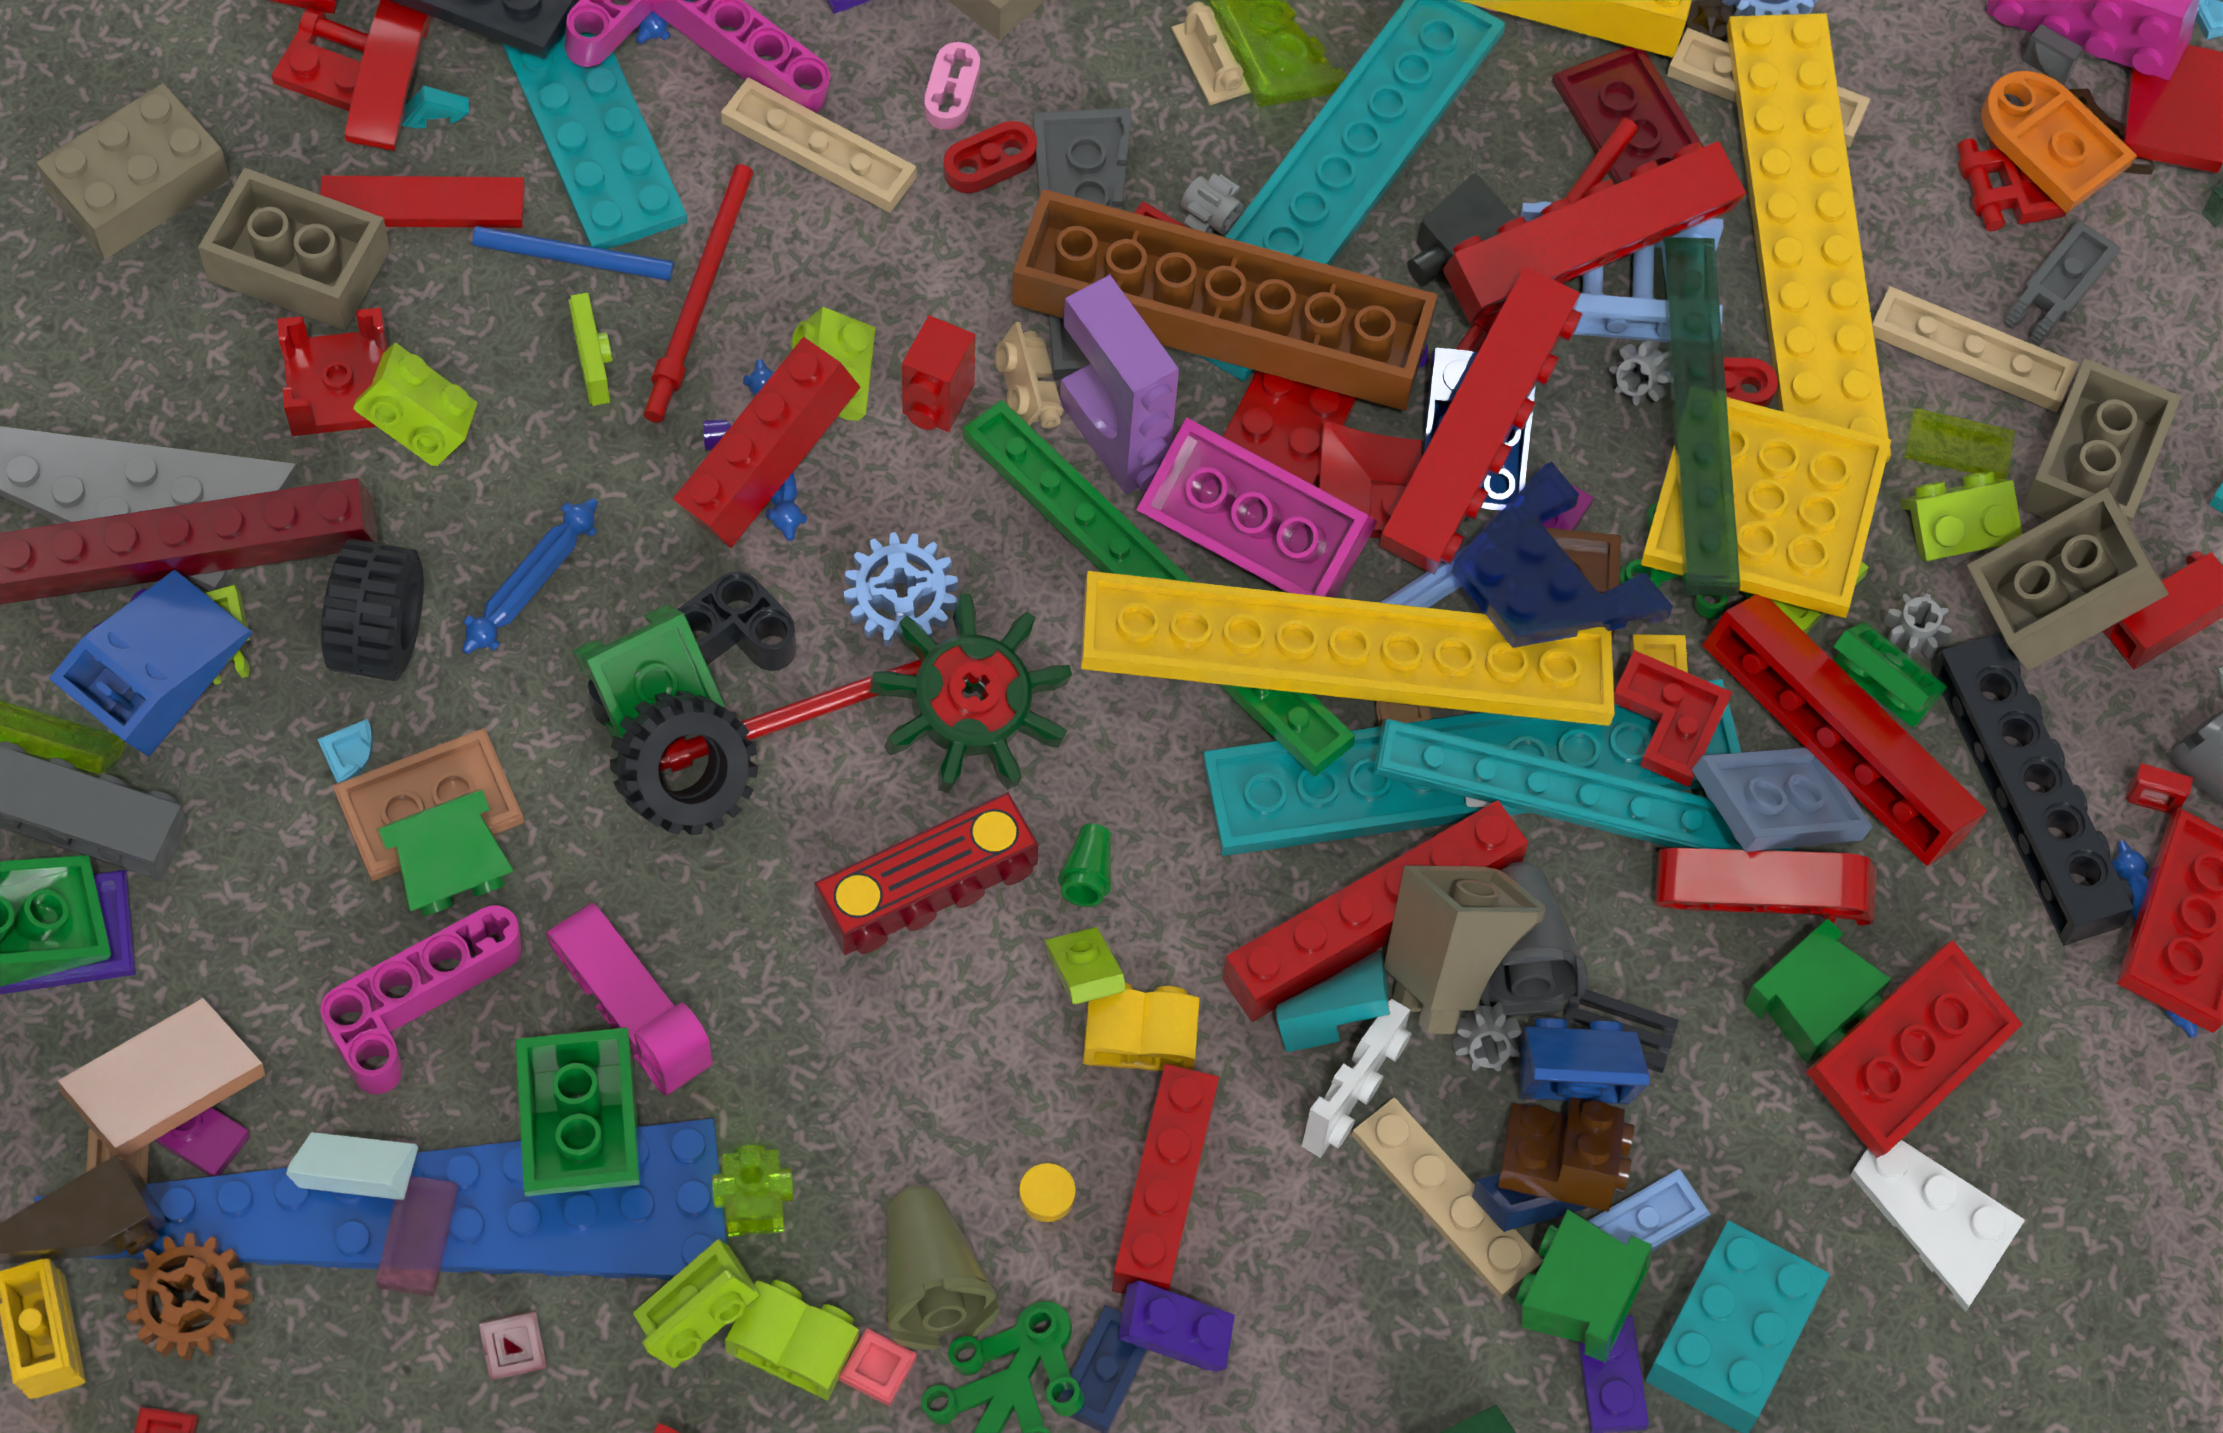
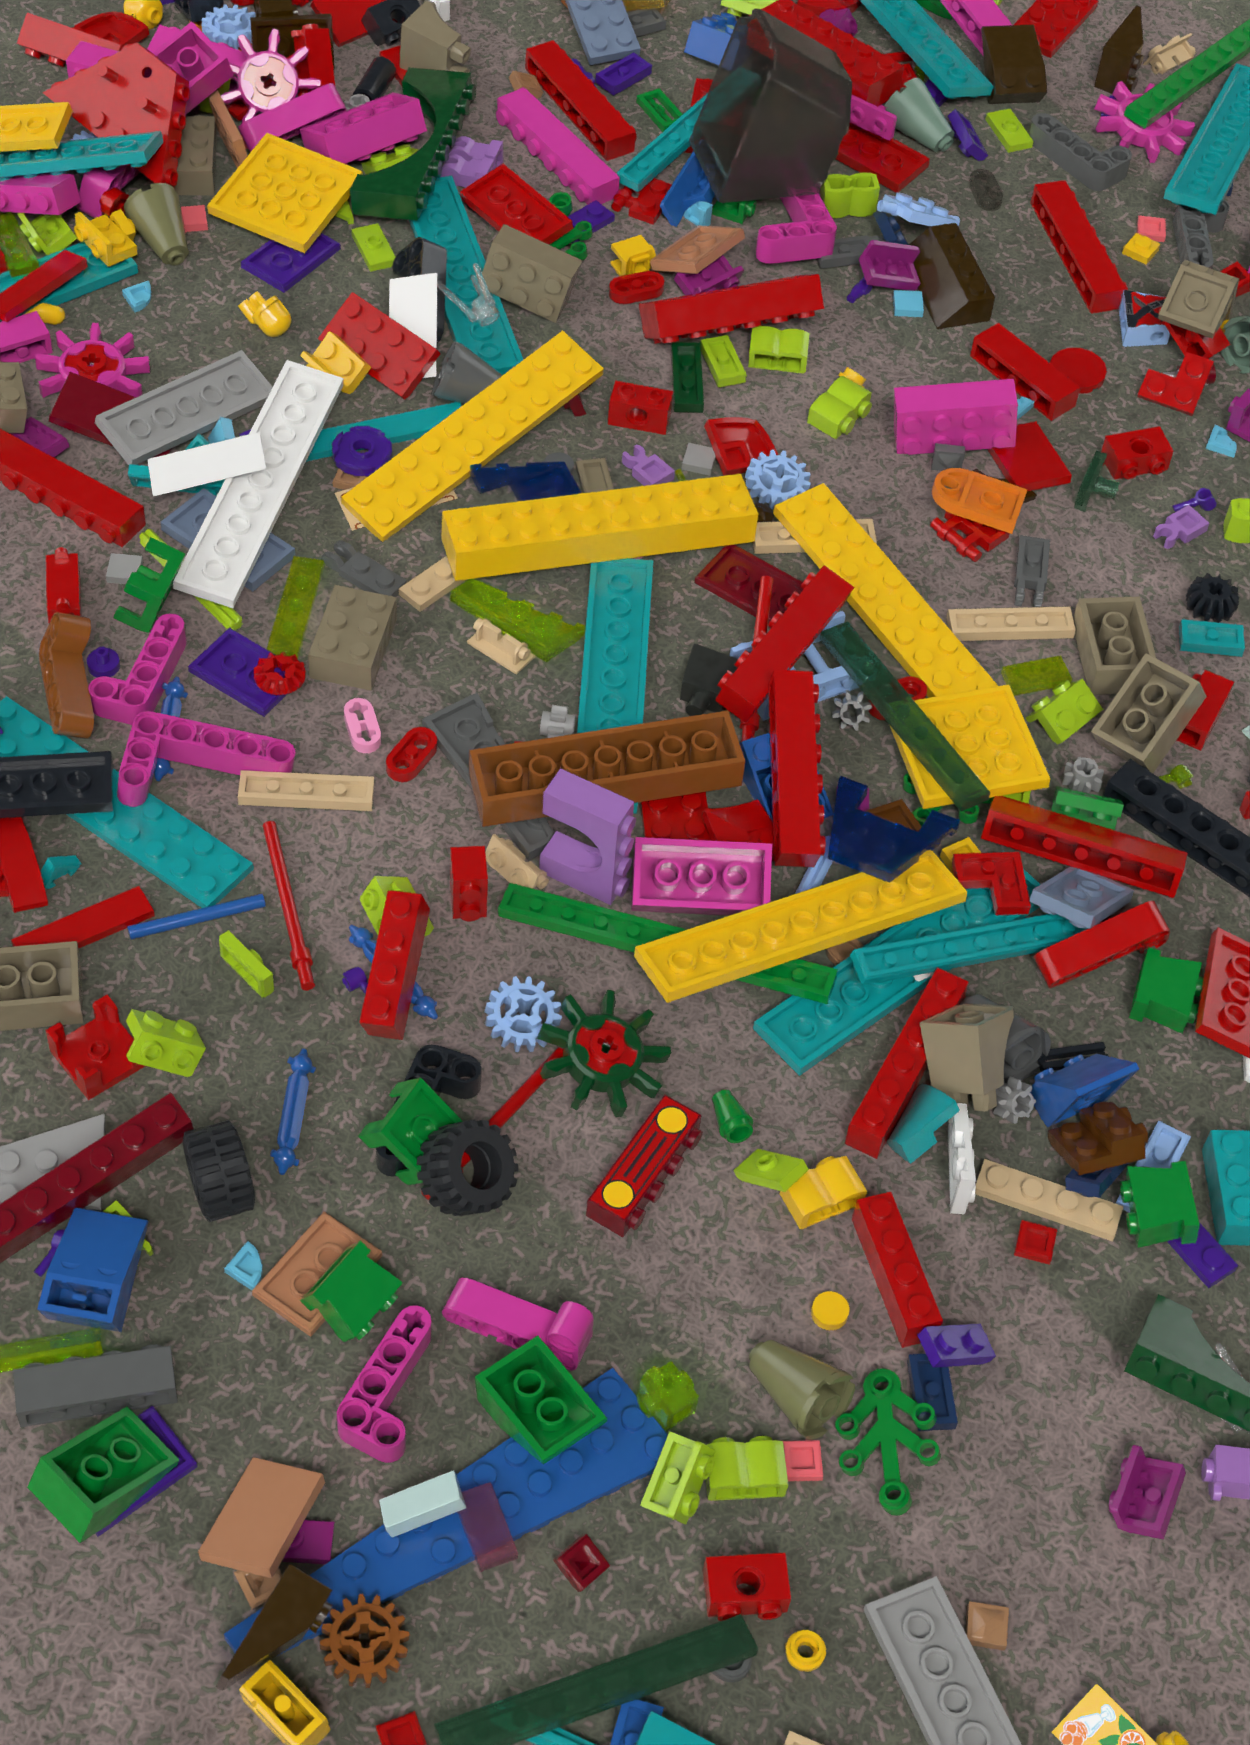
camera: 30 degrees left, 10 degrees down
(1389, 1245) = (1035, 1242): none -> red tile
(2068, 689) = (1180, 775): none -> clear neon green hand

